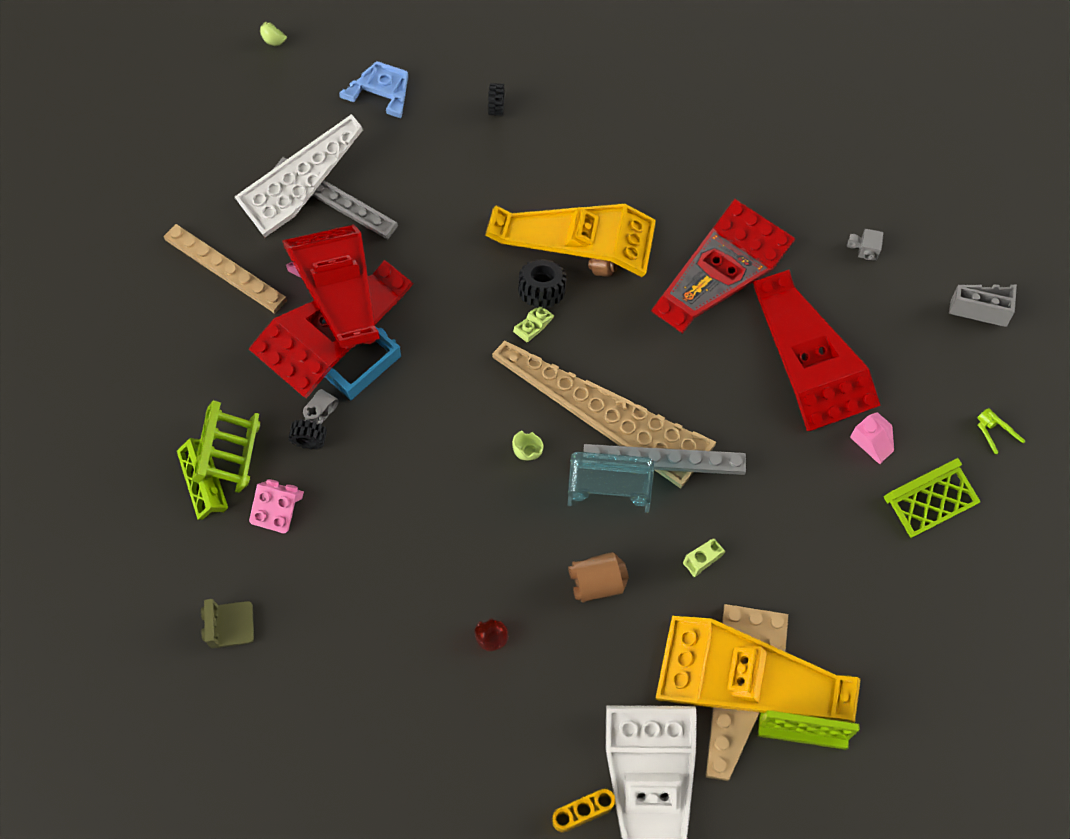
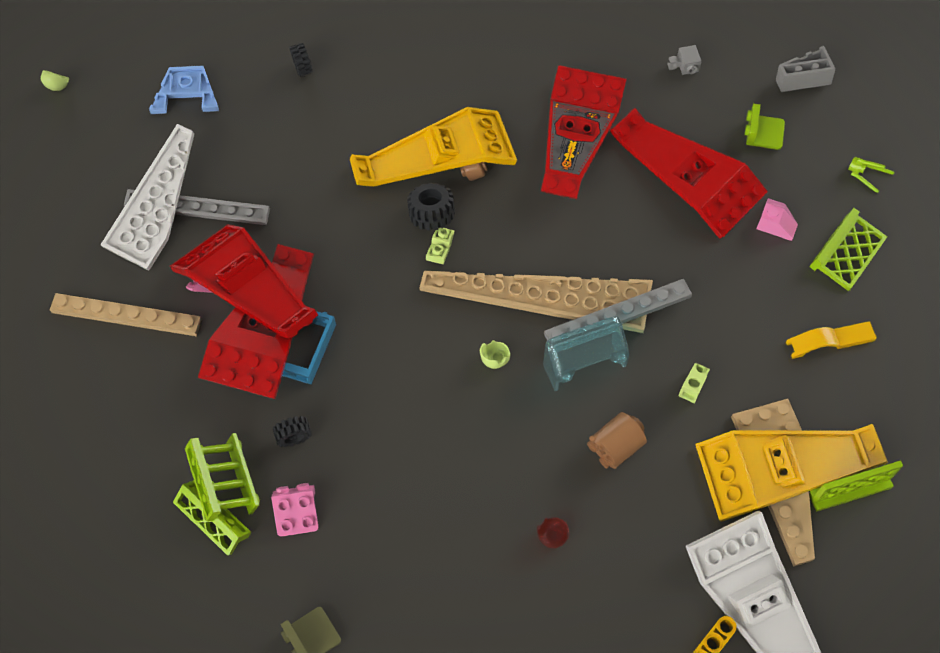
camera: 25 degrees left, 0 degrees up
(320, 407) = (288, 402): light grey piece -> none
(871, 578) = (837, 337): none -> yellow piece
(909, 344) = (763, 130): none -> lime bracket

